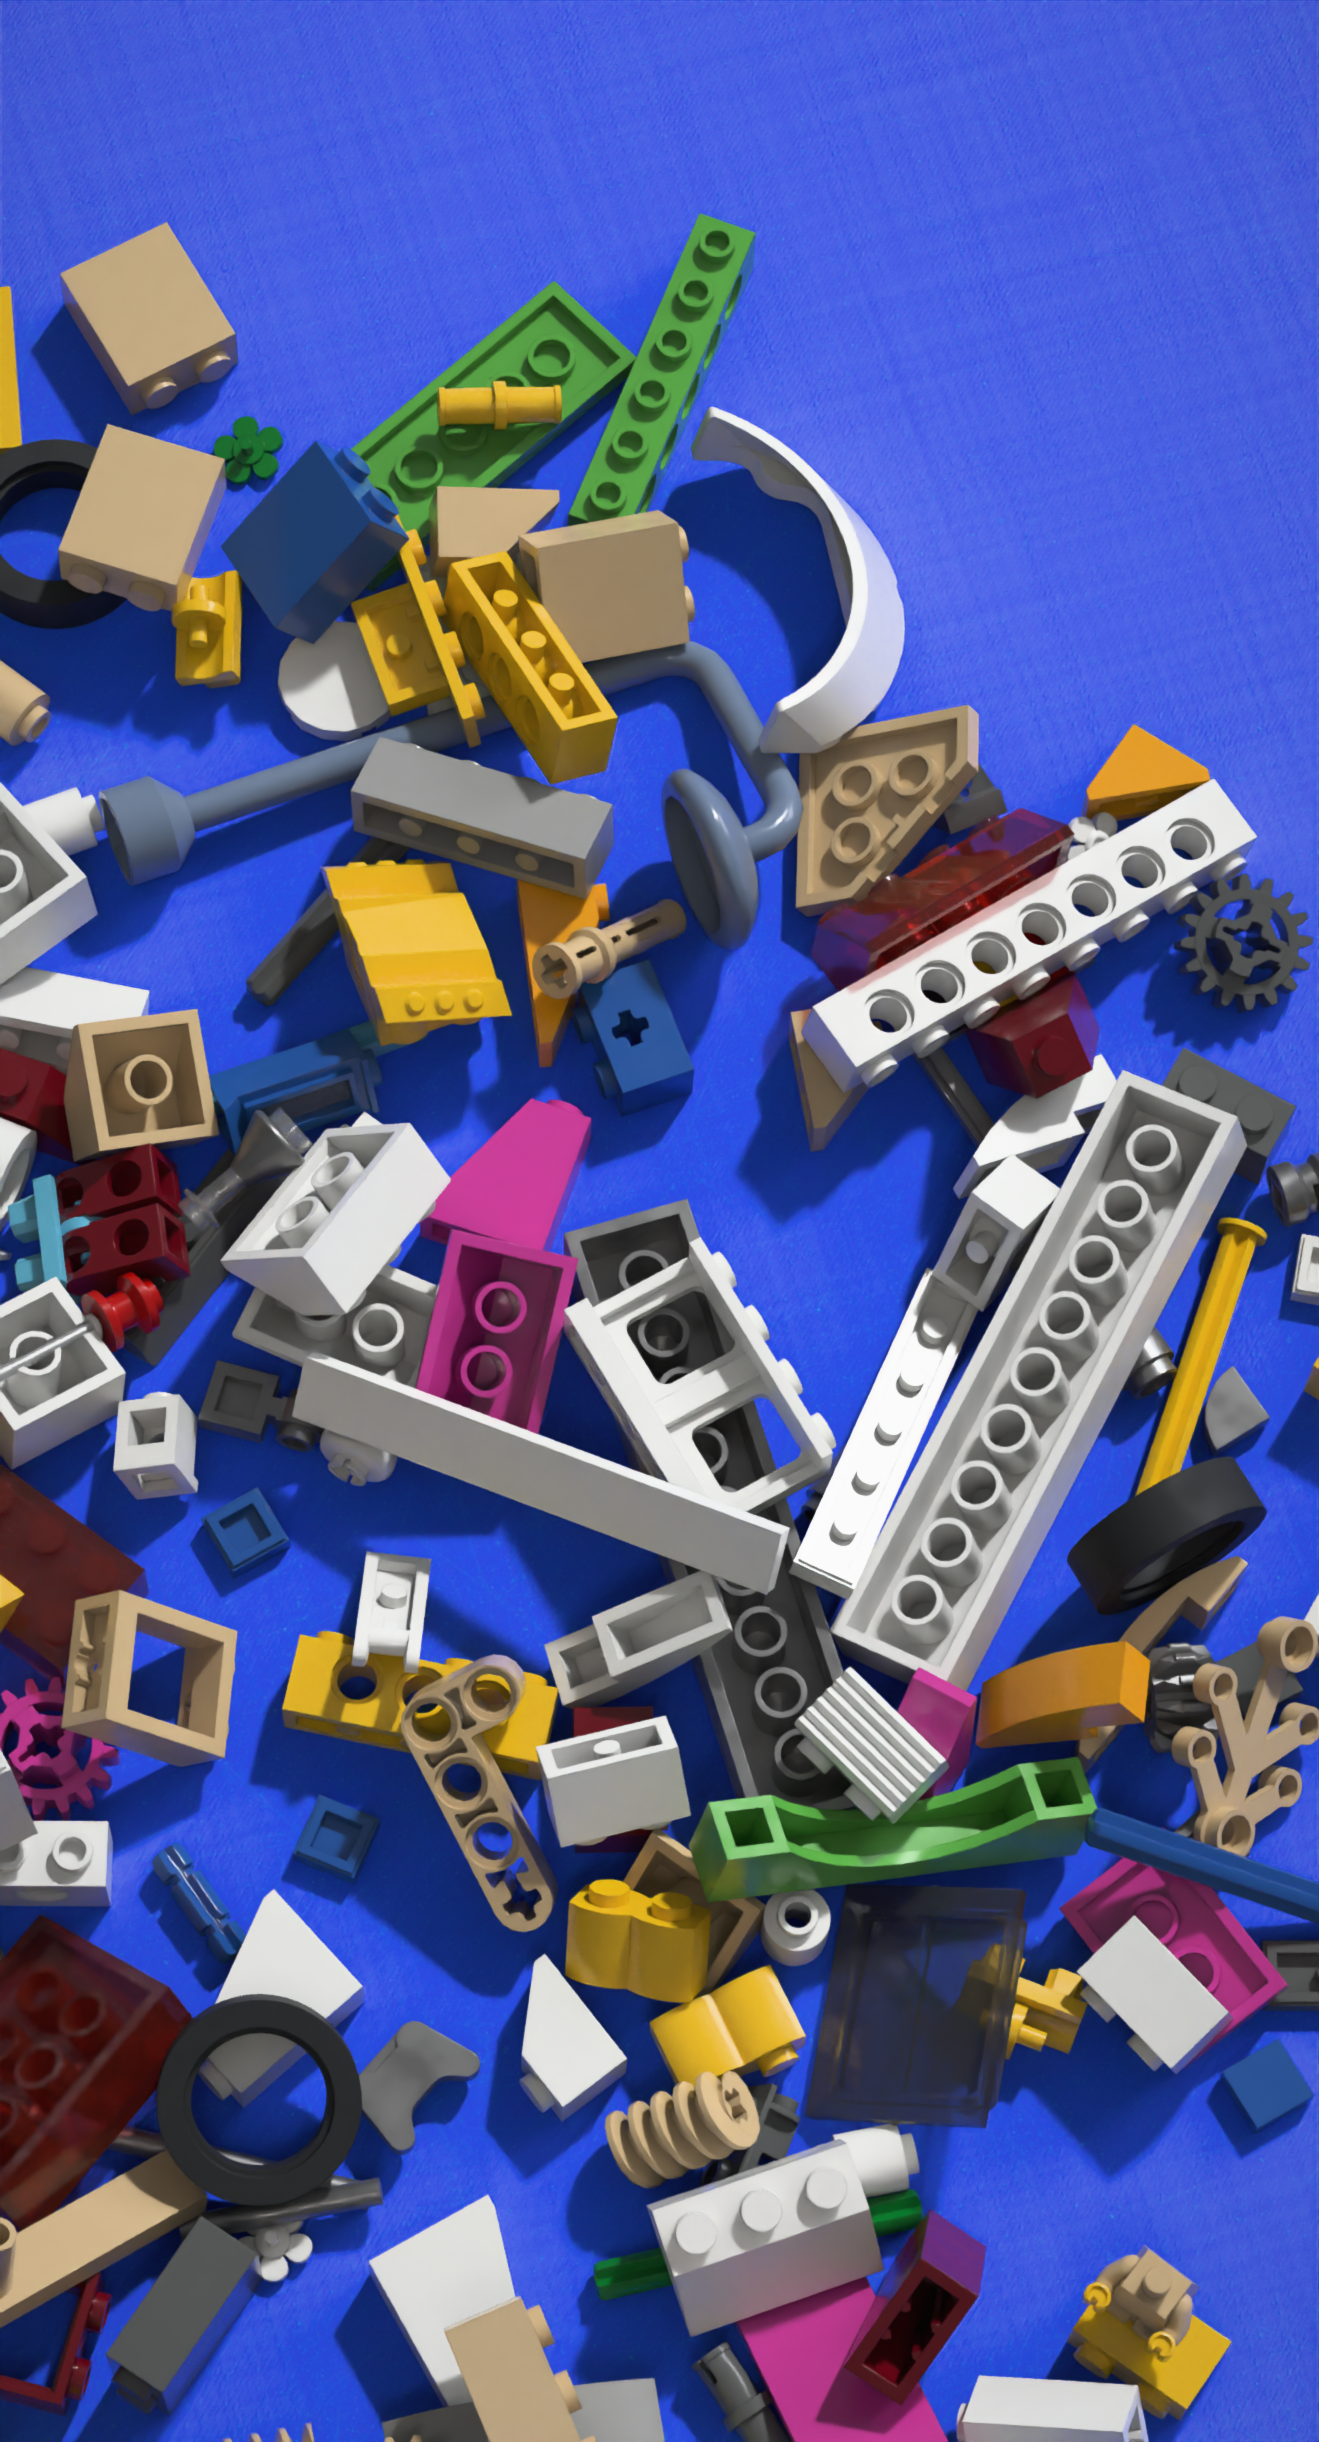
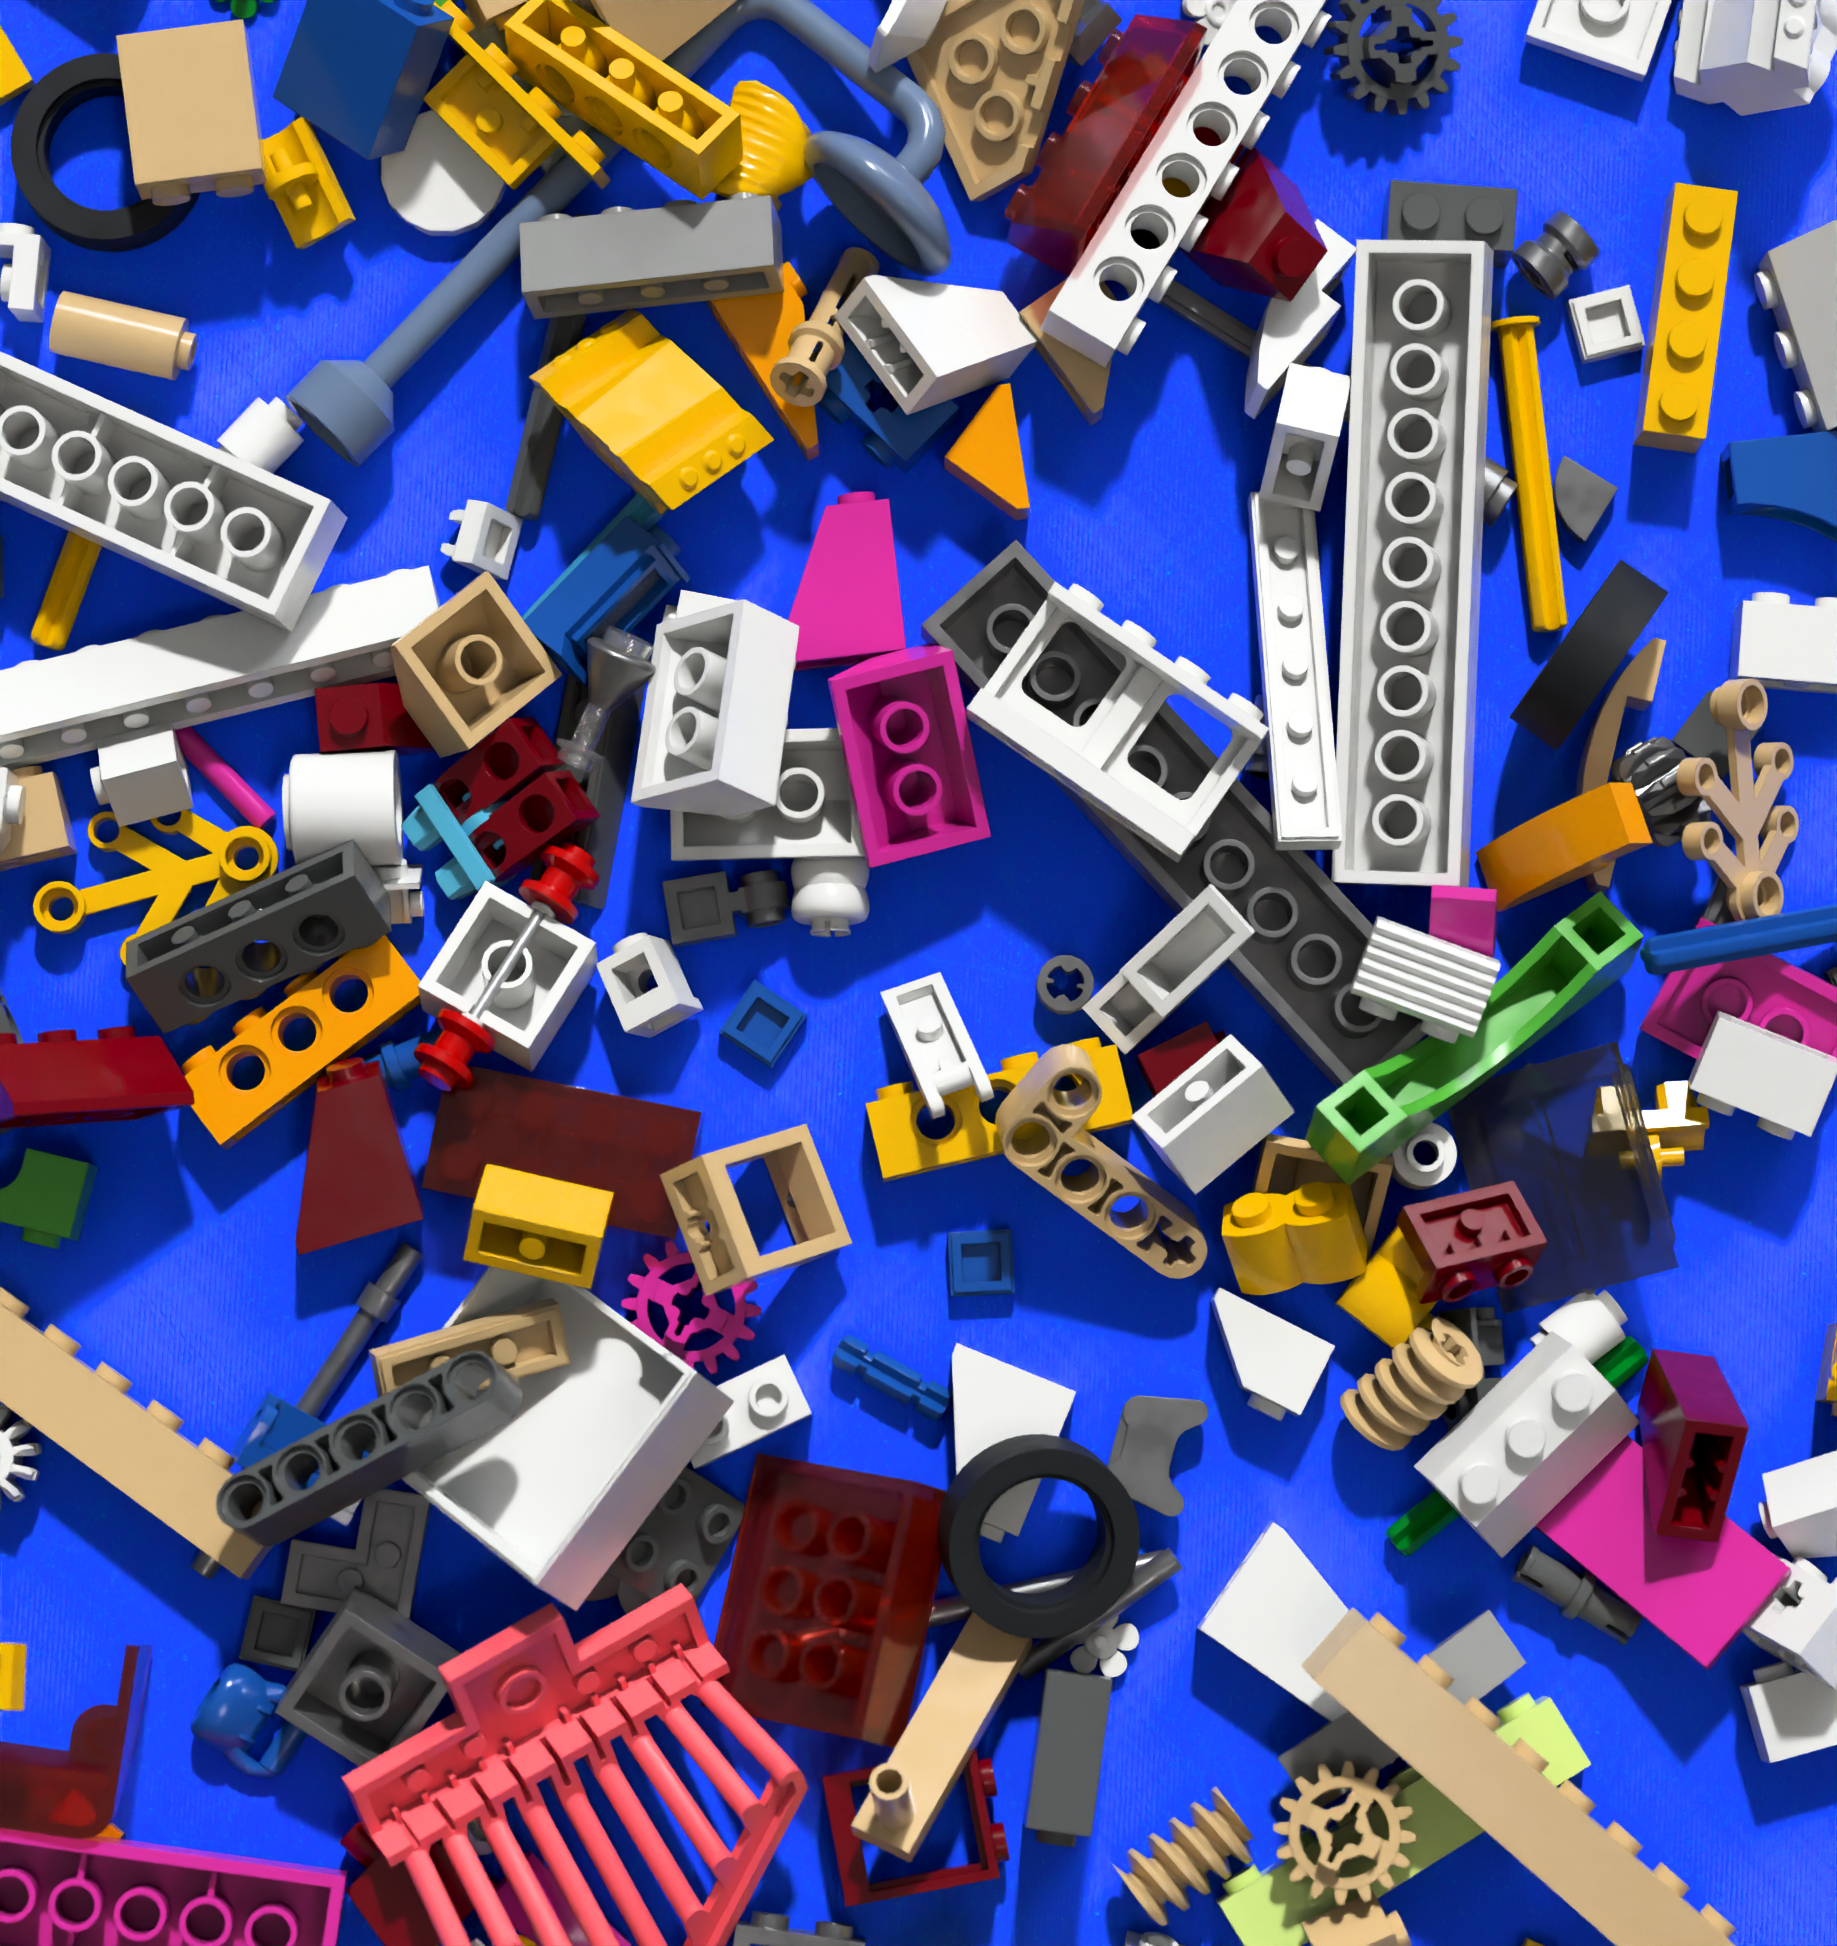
camera: 25 degrees left, 15 degrees up
(217, 994) = (484, 539): none -> white tile
(541, 1472) = (1015, 867): white tile -> none
(554, 1610) = (1068, 965): none -> flat silver bush
(634, 773) = (770, 142): none -> yellow hair
(702, 998) = (934, 337): none -> white slope
(704, 1126) = (990, 455): none -> light orange slope
(801, 2020) = (1472, 1241): none -> dark red bracket

